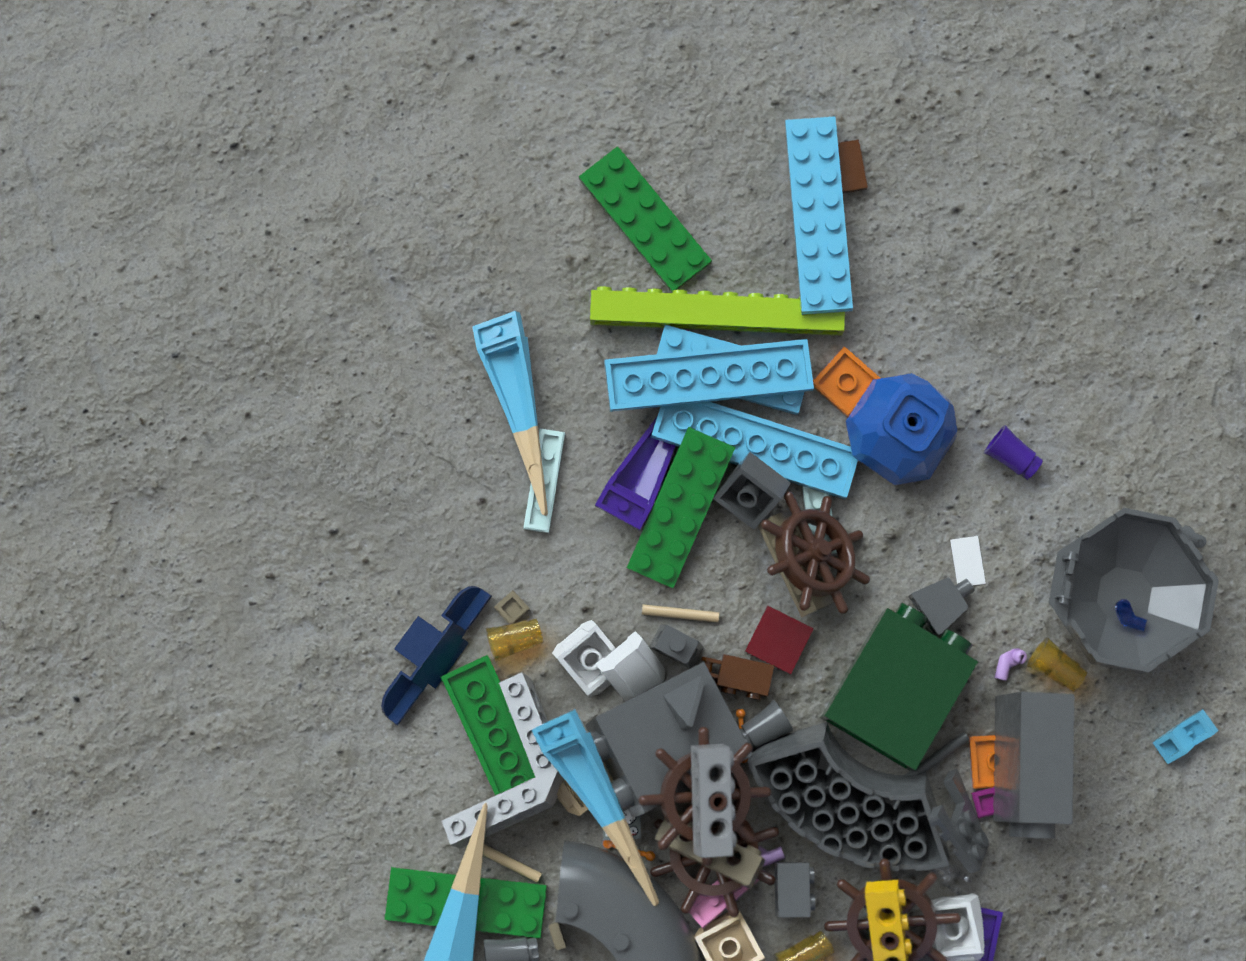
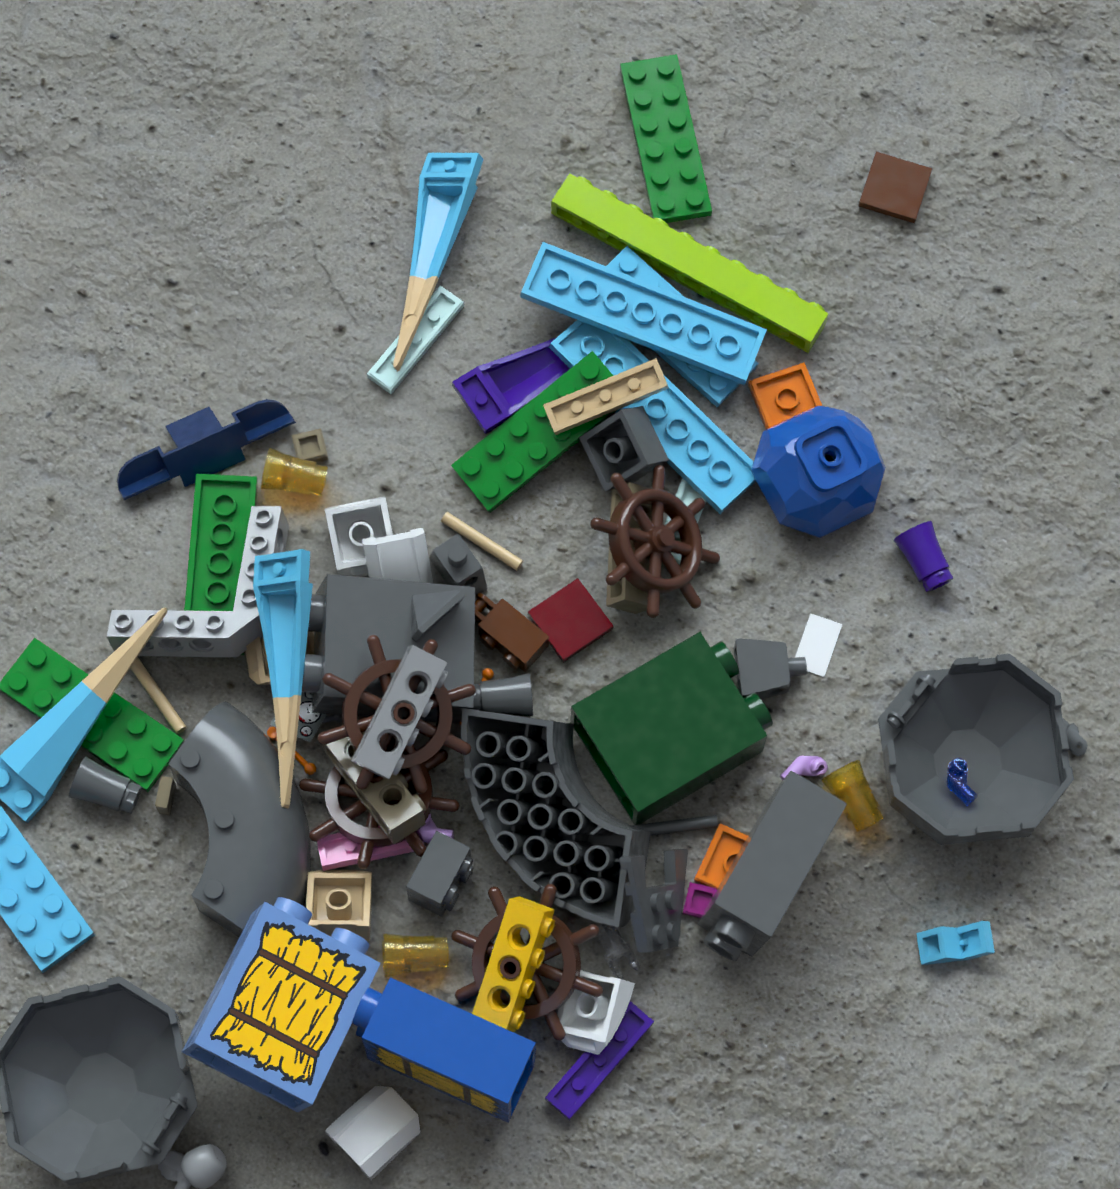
camera: 25 degrees right, 10 degrees down
(720, 460) = (606, 396): none -> tan plate
(818, 215) = (846, 218): medium azure plate -> none

